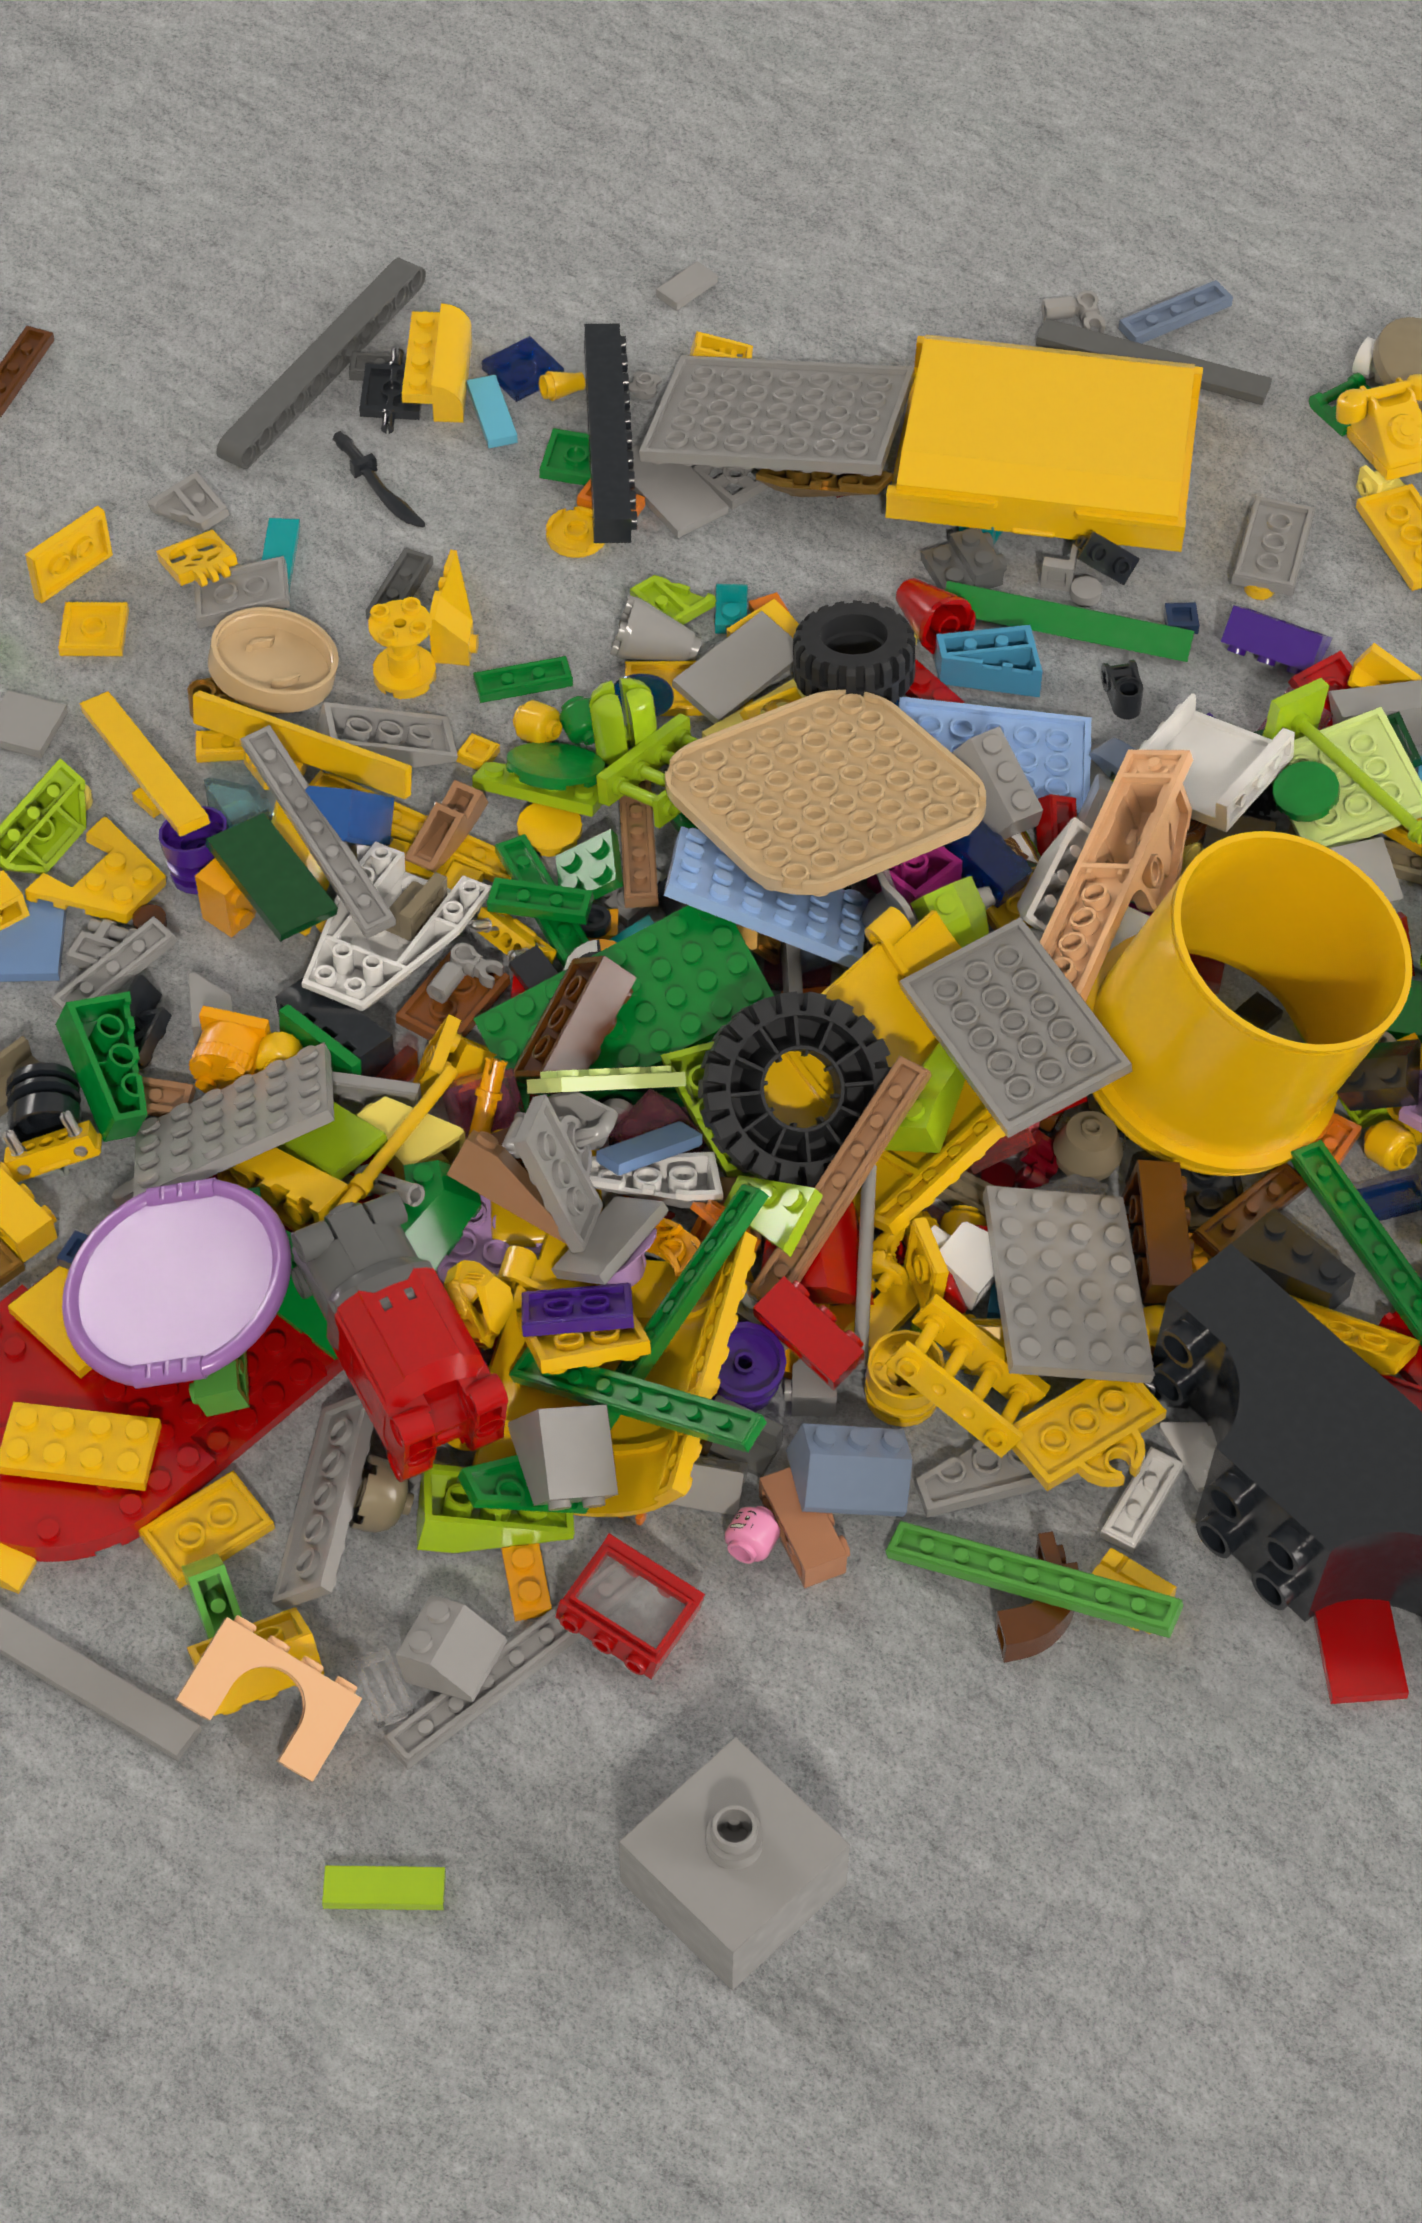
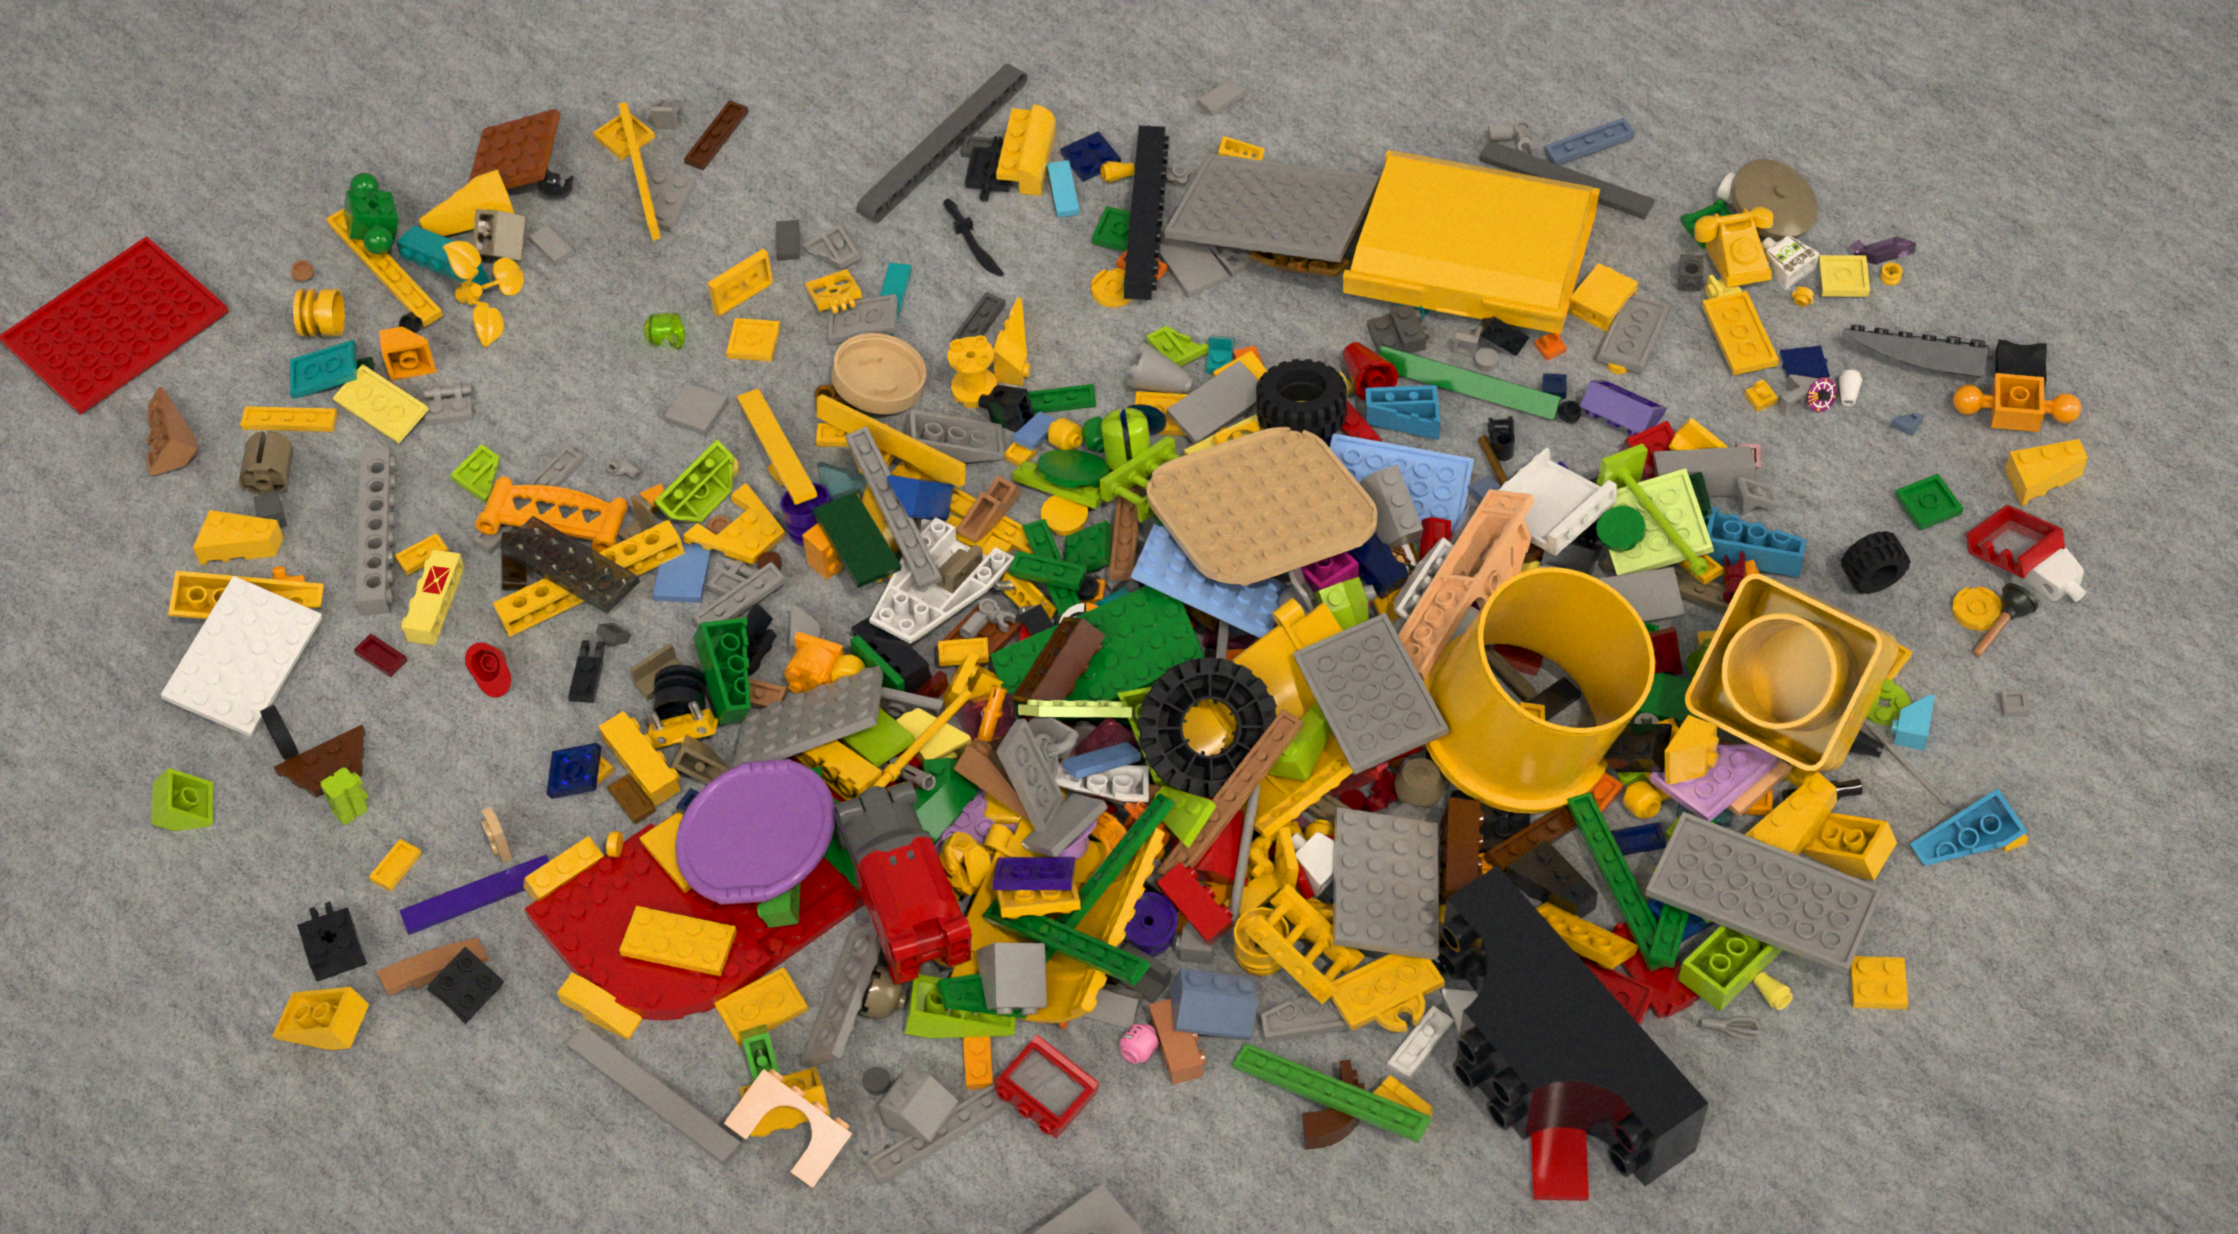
camera: 10 degrees right, 0 degrees up
(72, 872) = (718, 523): none -> medium nougat tile
(80, 1193) = (698, 760): none -> dark tan slope
(127, 498) = (788, 240): none -> dark grey tile
(385, 1620) = (877, 1081): none -> dark grey tile
(425, 1018) = (955, 651): none -> yellow tile
(457, 693) = (1008, 406): none -> black torso
(494, 722) = (1034, 431): none -> medium blue tile
(1116, 718) = (1492, 459): none -> pearl gold bar
(1167, 569) = (1550, 346): none -> orange tile
(1207, 649) = (1569, 411): none -> black plate
(1226, 503) = (1601, 296): none -> yellow panel
(1335, 465) = (1690, 272): none -> dark grey brick

